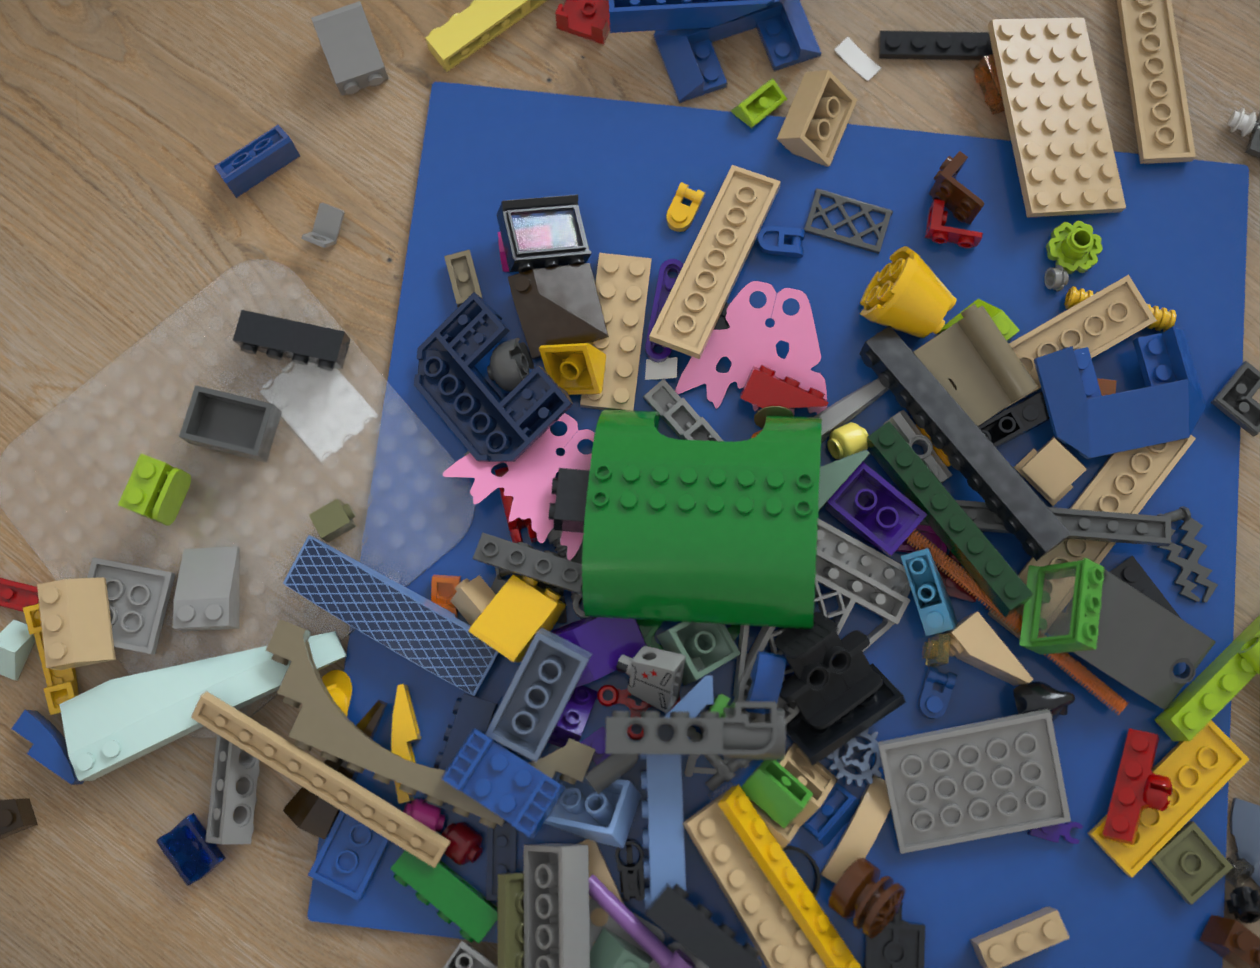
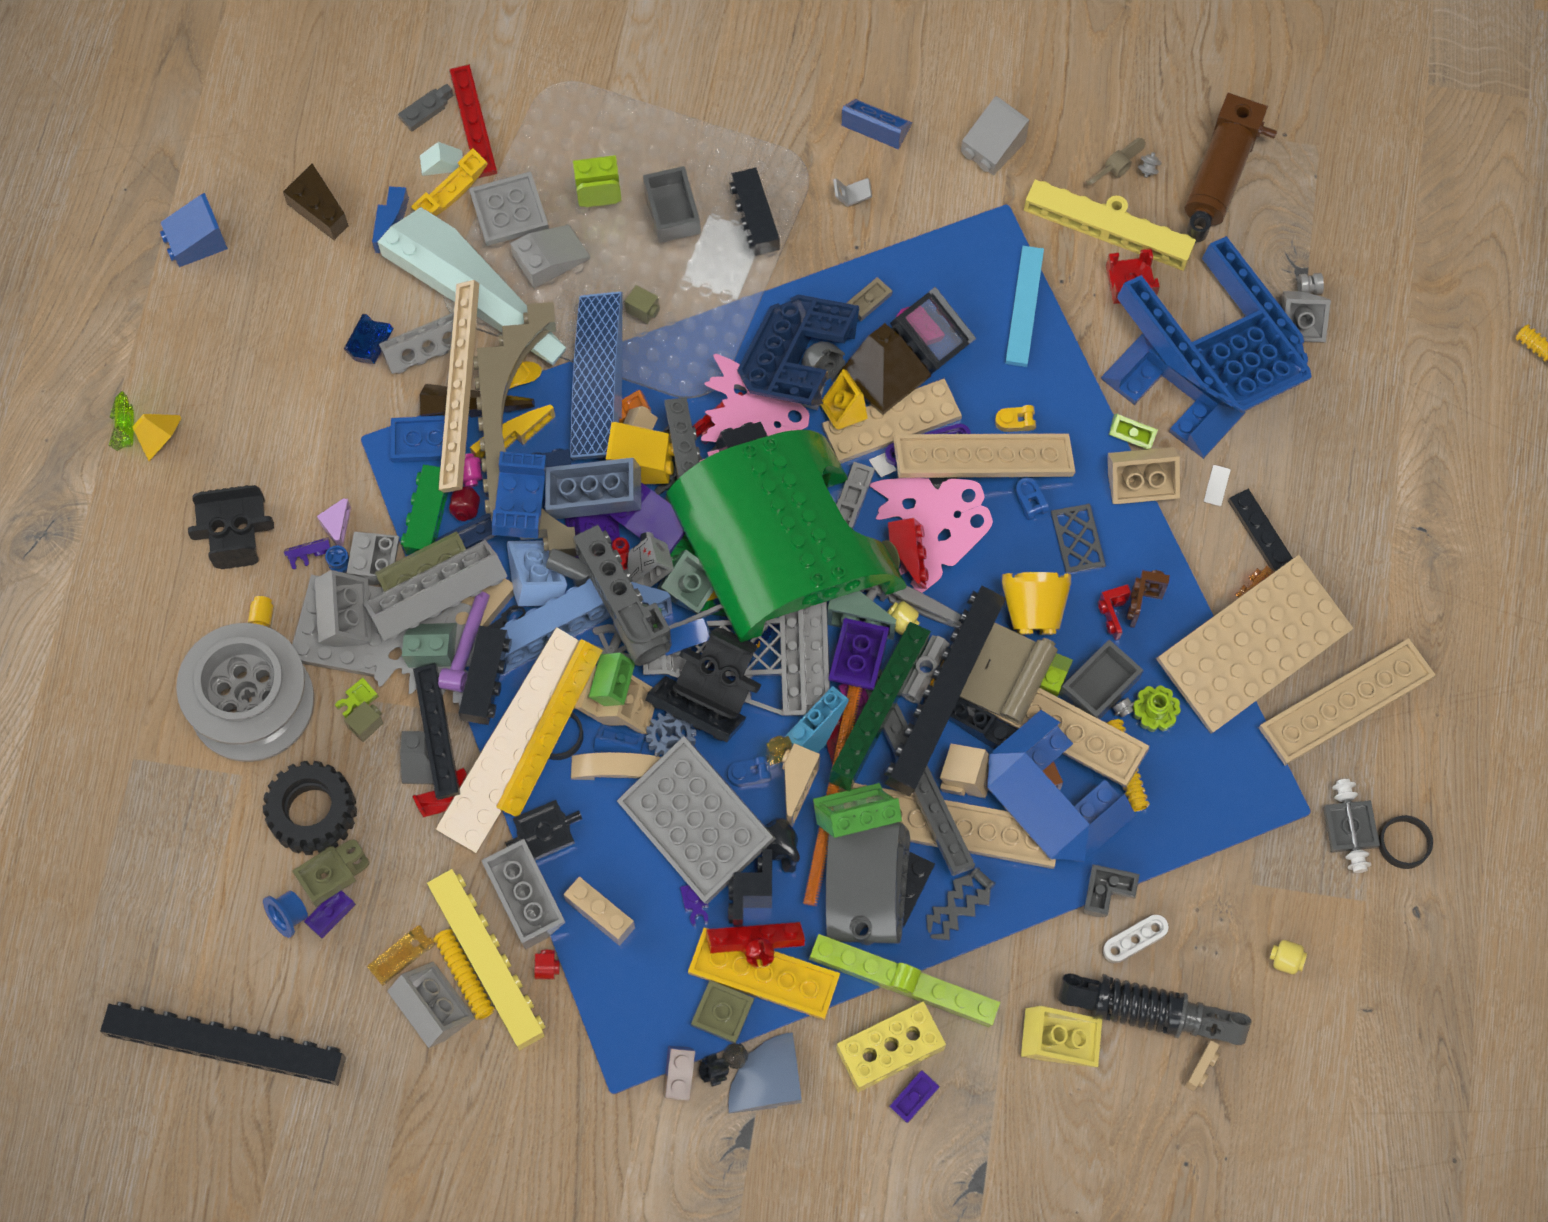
camera: 60 degrees right, 10 degrees down
(75, 622) = (480, 183): tan slope -> none
(561, 129) = (1024, 306): none -> medium azure tile
(866, 897) = (571, 783): reddish brown wheel -> none
(1025, 282) = (1102, 681): none -> dark grey piece
(1082, 764) = (751, 889): none -> black bracket

